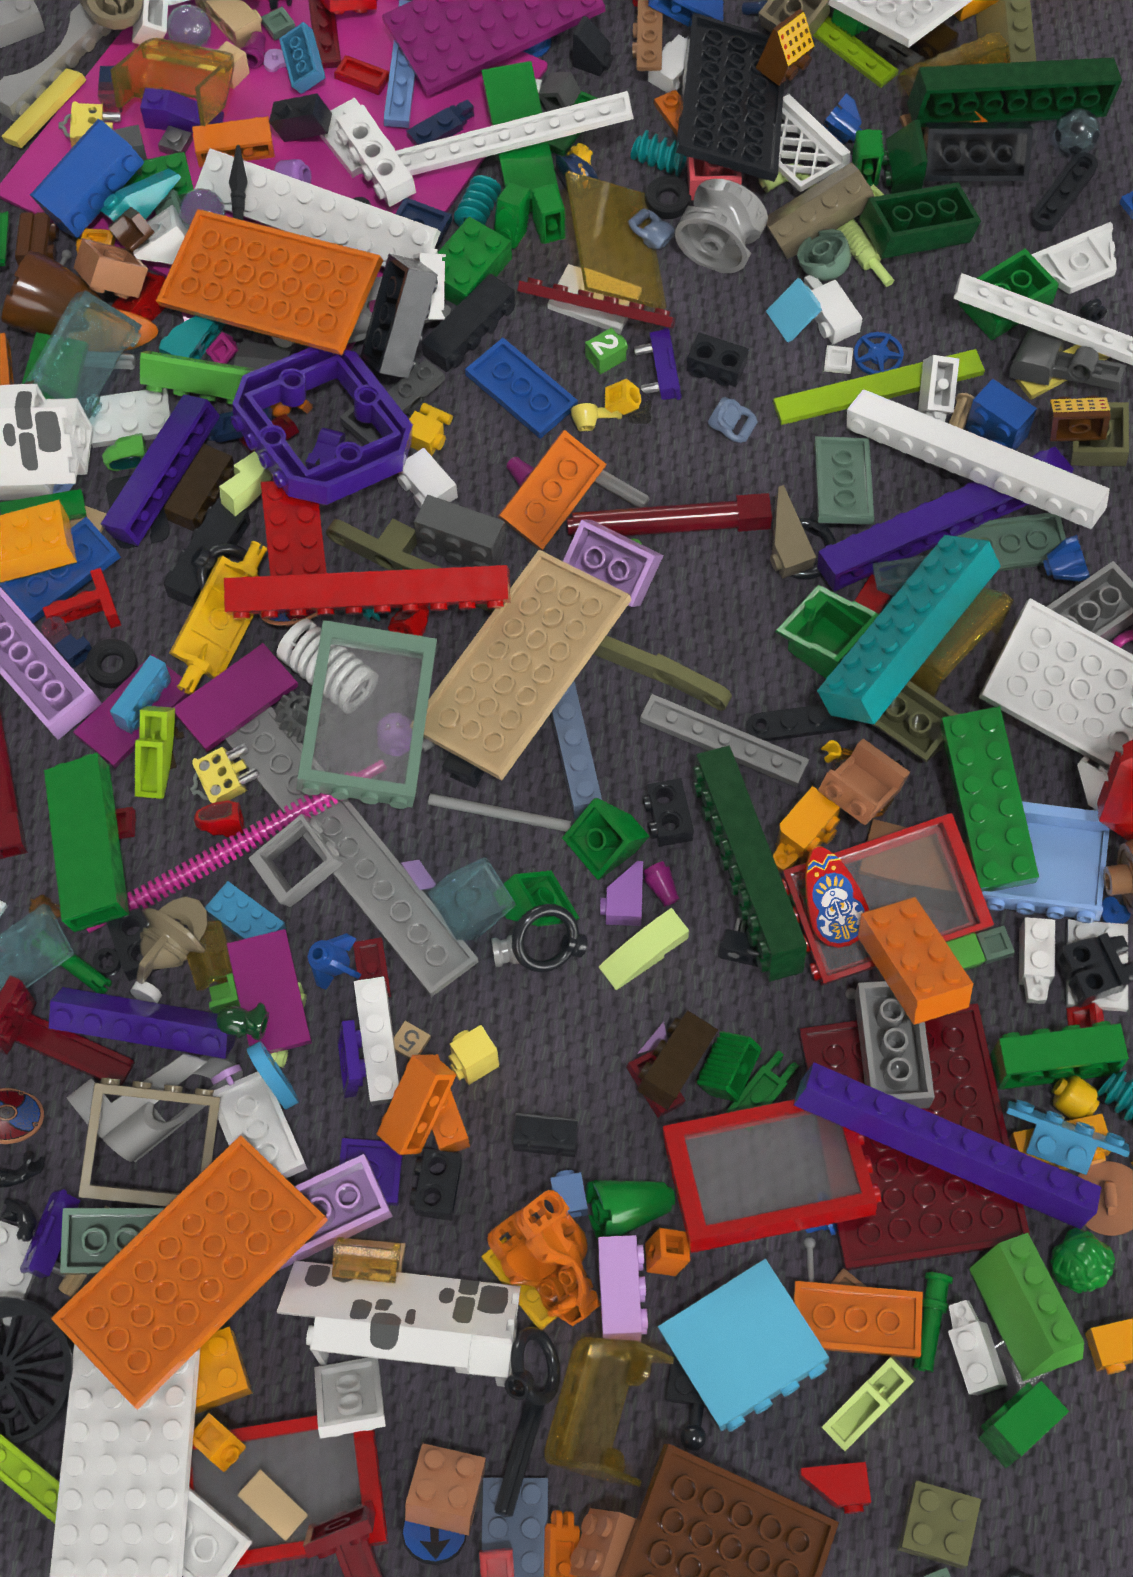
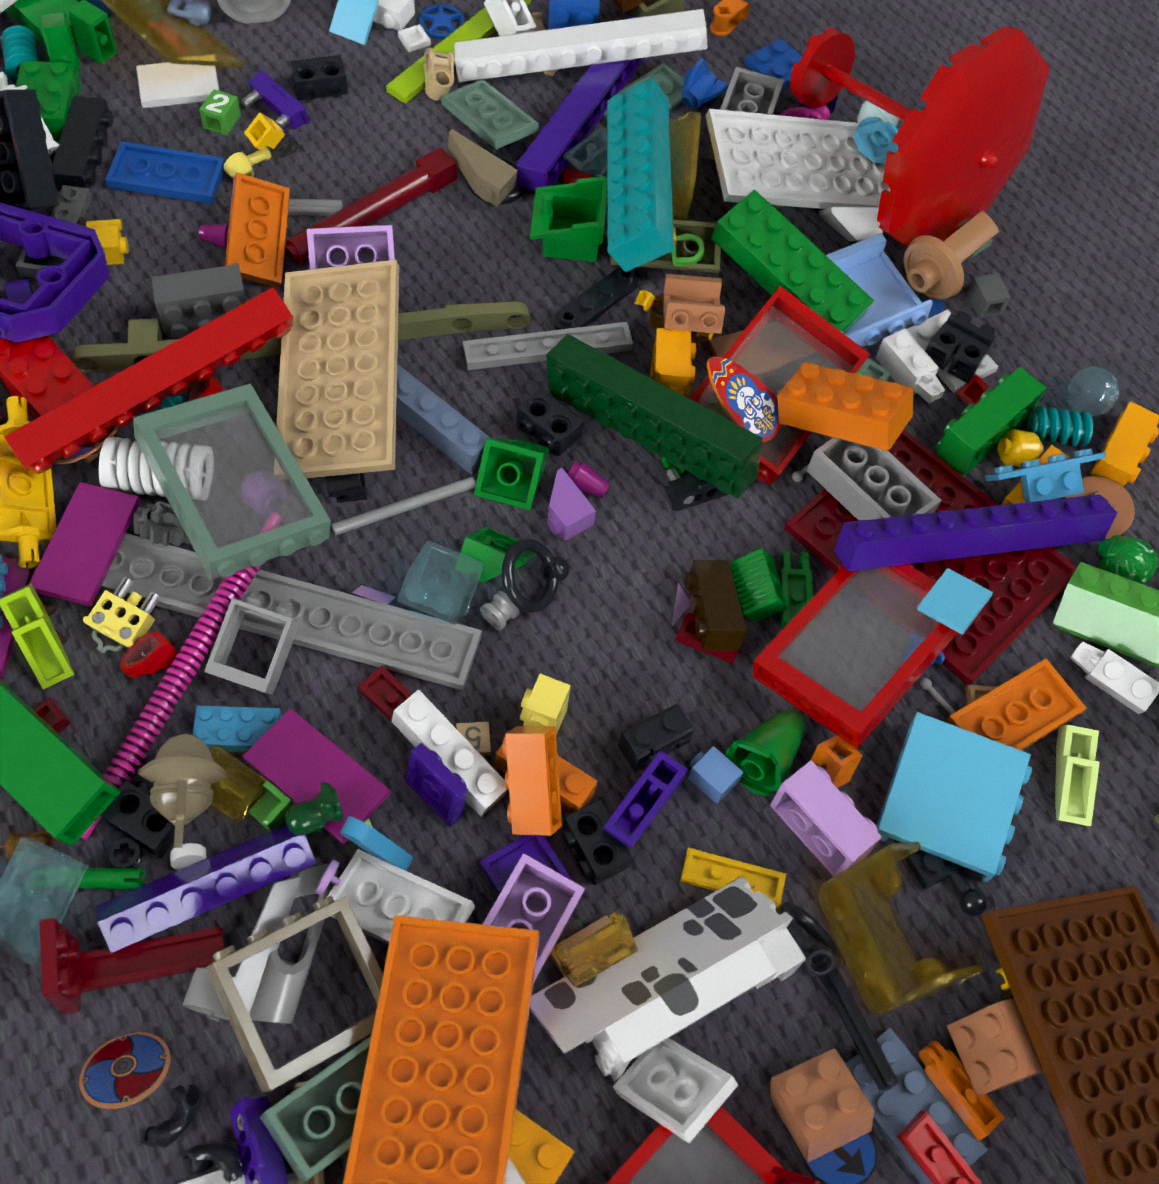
camera: 45 degrees left, 5 degrees down
(331, 959) = (351, 711): blue brick -> none
(425, 476) = (132, 278): white brick -> none
(494, 1178) = (646, 799): none -> dark purple slope
(548, 1257) = (745, 835): orange animal -> none
(608, 304) = (174, 80): dark red plate -> none
(645, 949) = (615, 537): yellowish green slope -> none
(726, 417) = (358, 115): sand blue piece -> none
(829, 408) = (438, 73): none -> tan piece
(840, 1485) = (1113, 854): red slope -> none
(860, 1189) = (954, 601): none -> medium azure piece
(895, 706) = (684, 261): none -> bright green piece
(934, 1306) = (1046, 649): green pin -> none

